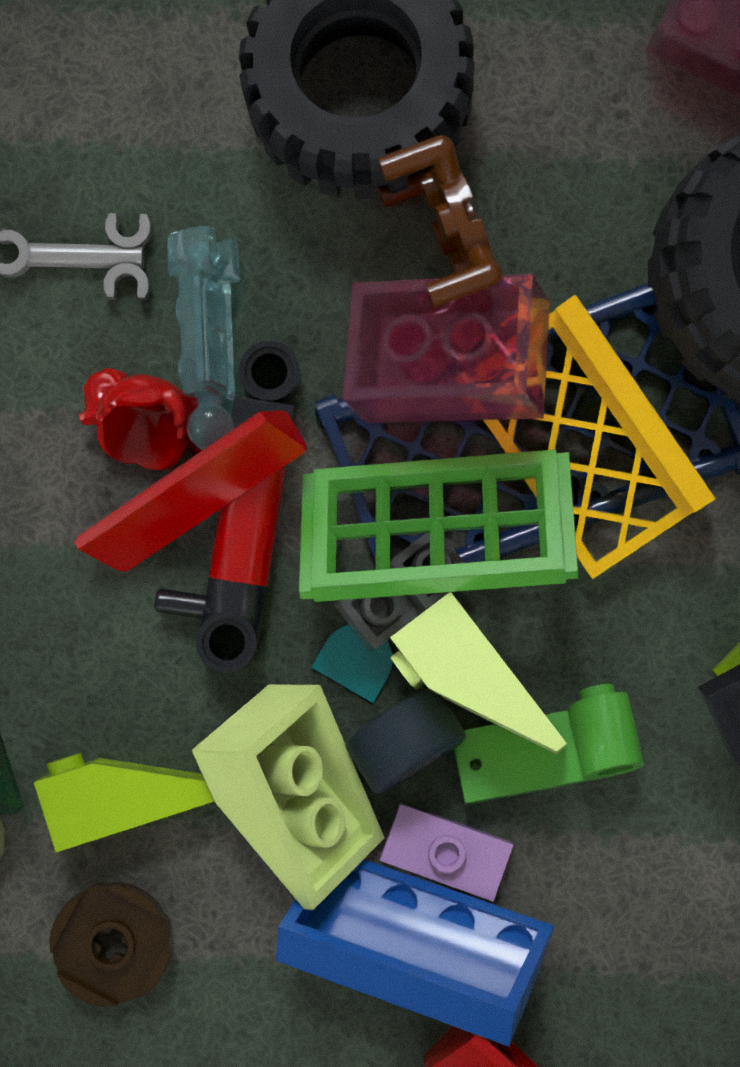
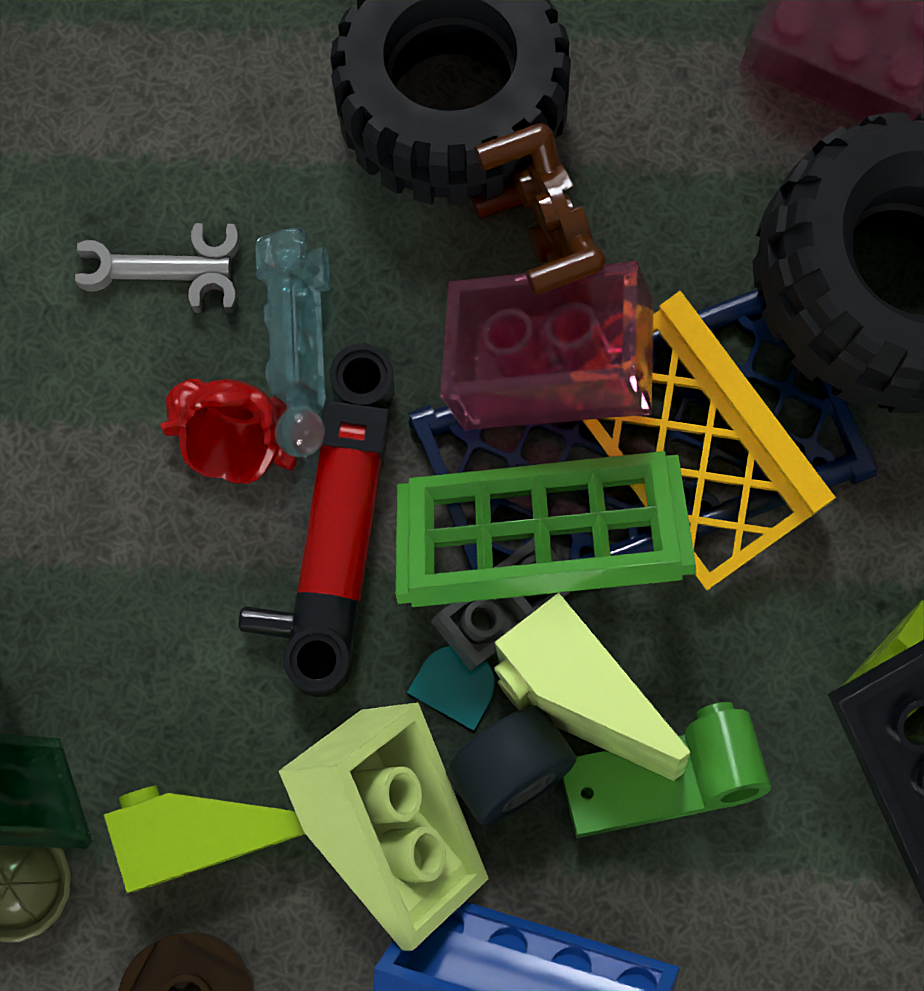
camera: 10 degrees left, 10 degrees down
(194, 491) = (281, 497): red slope -> none
(446, 851) = (557, 892): lavender plate -> none

